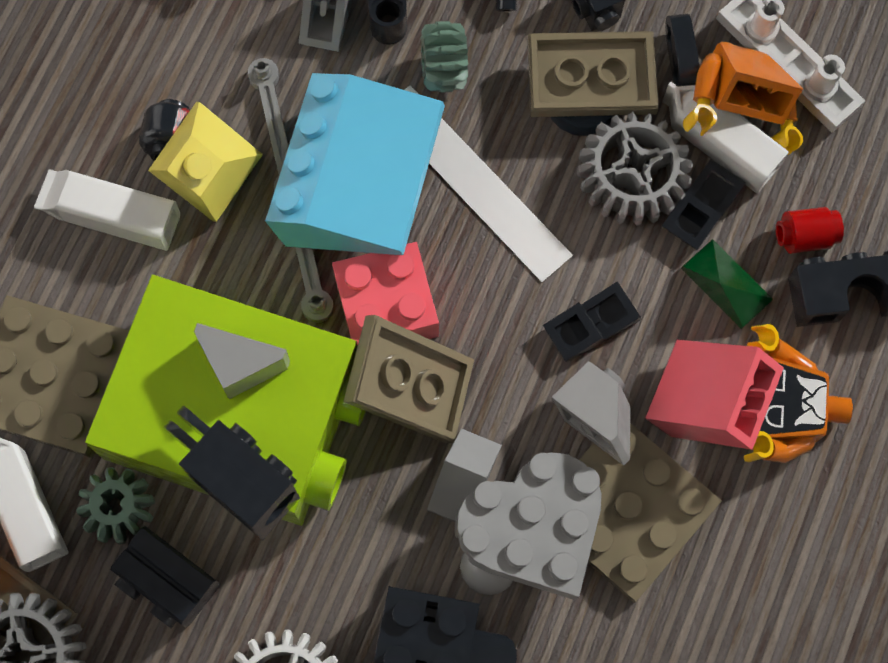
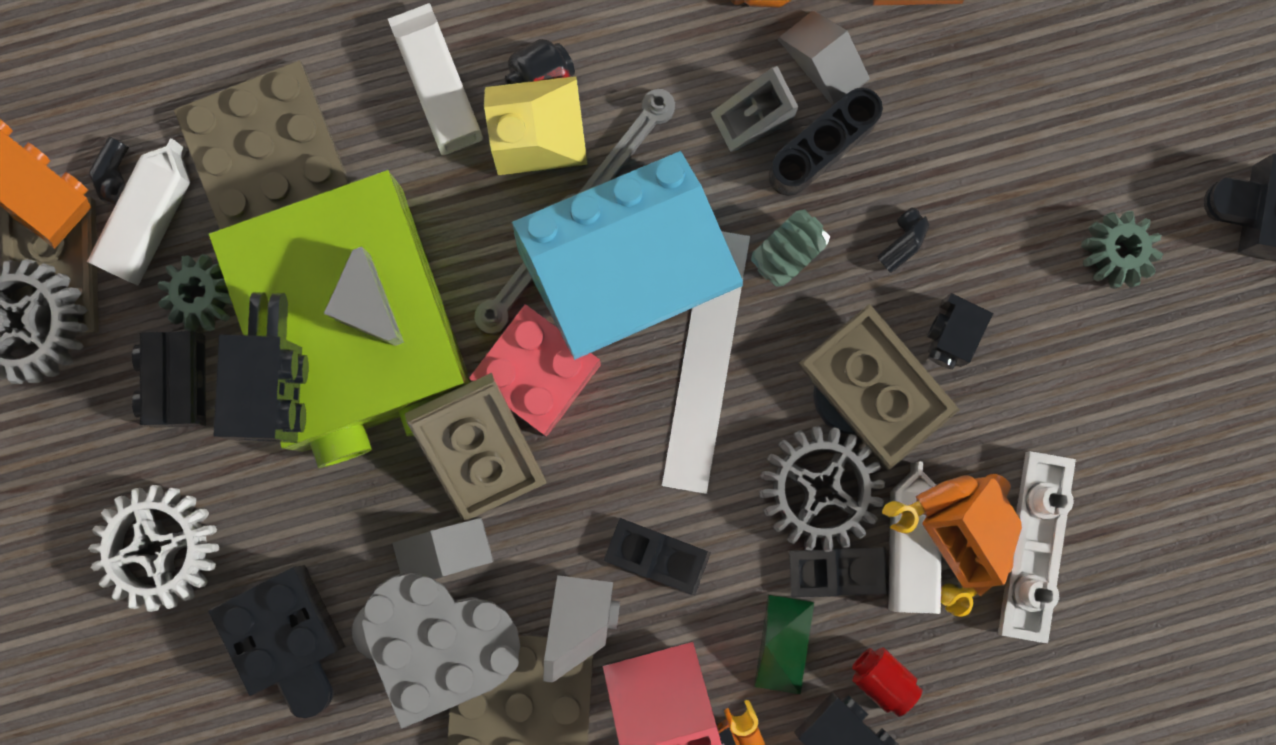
camera: 55 degrees right, 10 degrees up
(682, 49) = (966, 447): black beam -> none

